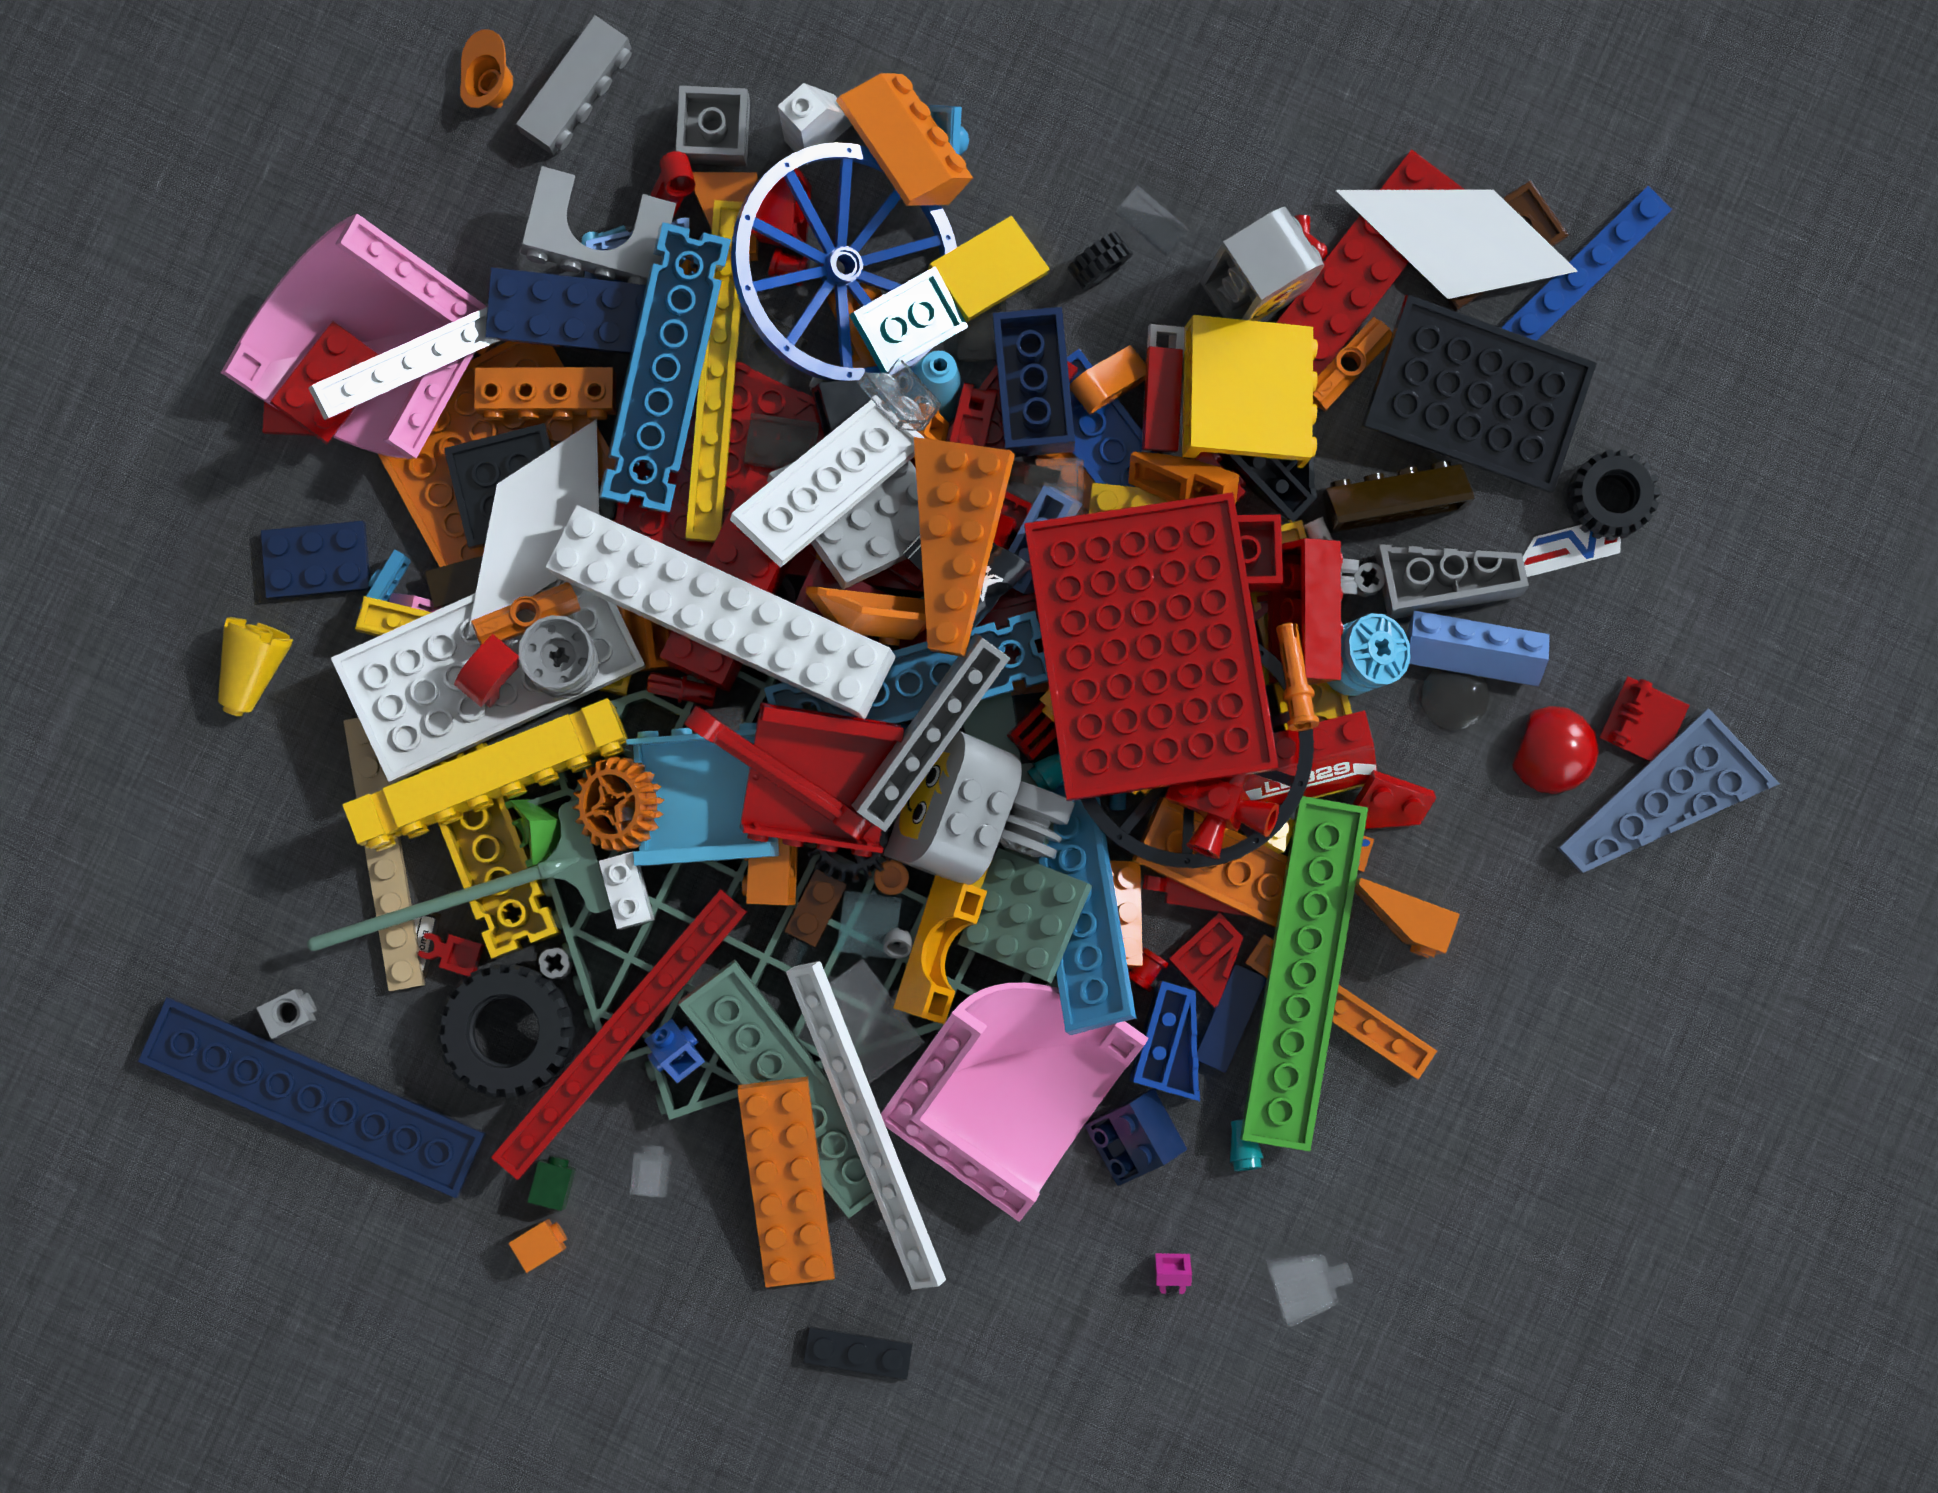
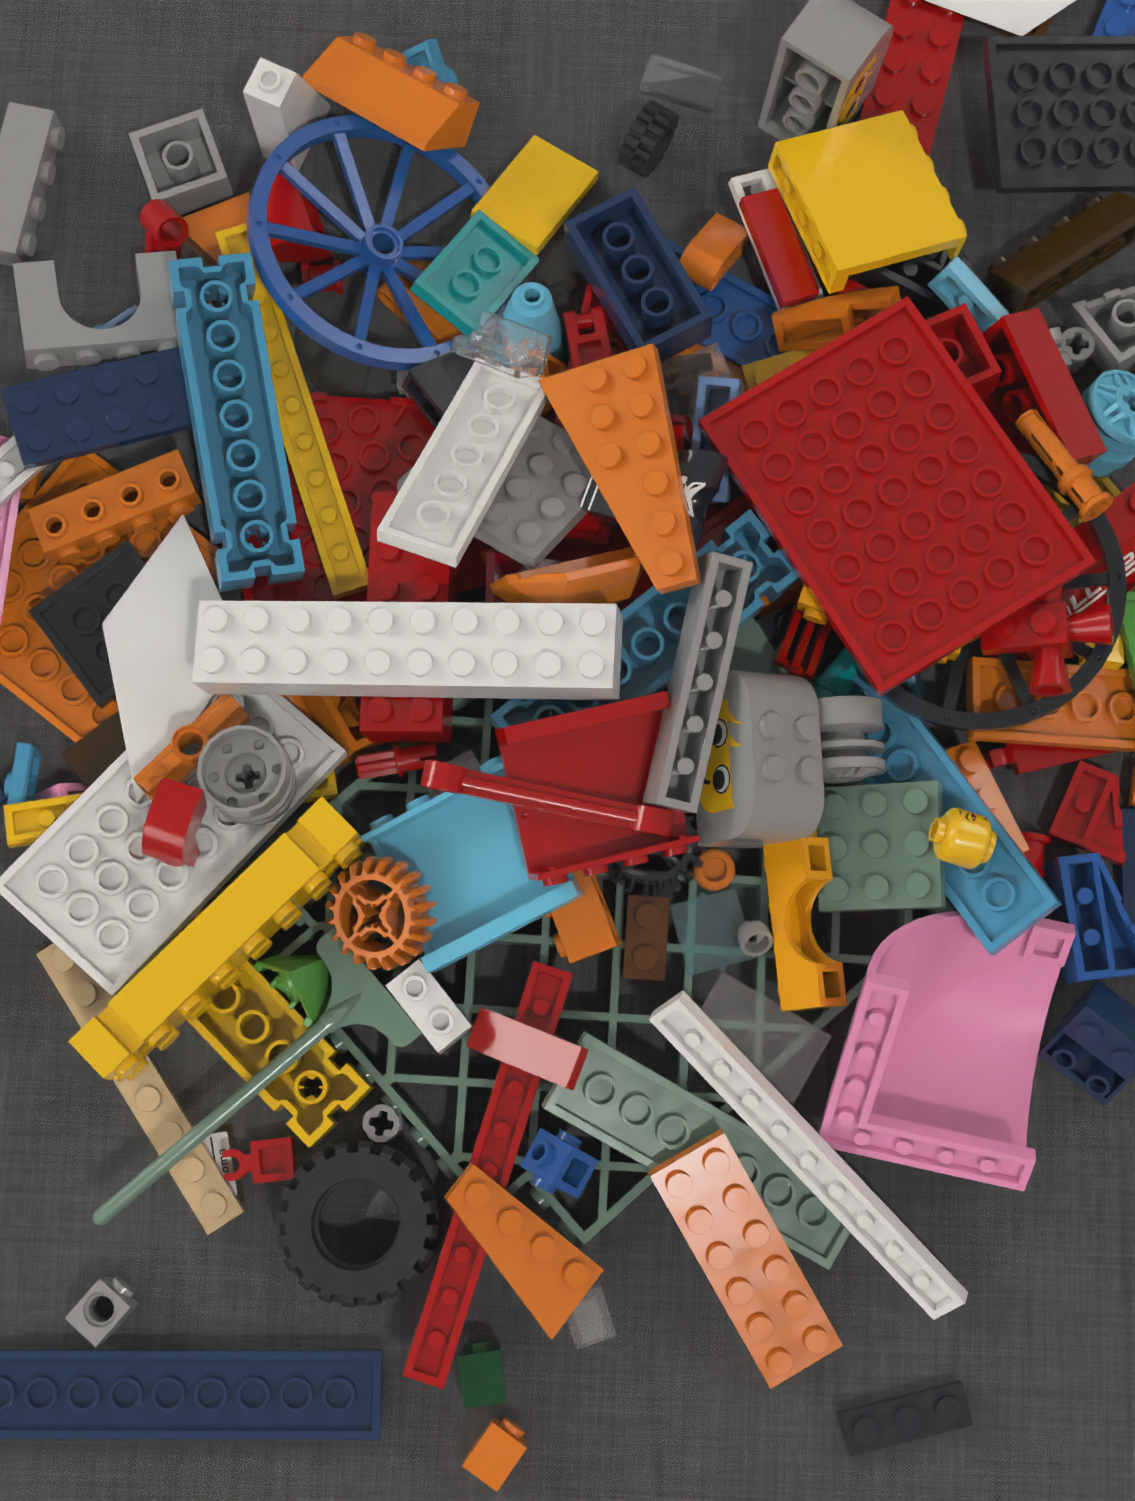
camera: 20 degrees left, 5 degrees down
(623, 1108) = (531, 1255): none -> orange wing
(685, 954) = (527, 1048): none -> tile
(778, 440) = (387, 454): clear smoke plate -> none
(1082, 936) = (962, 838): none -> yellow head
(1297, 505) = (959, 285): none -> medium azure panel
(1363, 349) = (958, 125): orange piece -> none

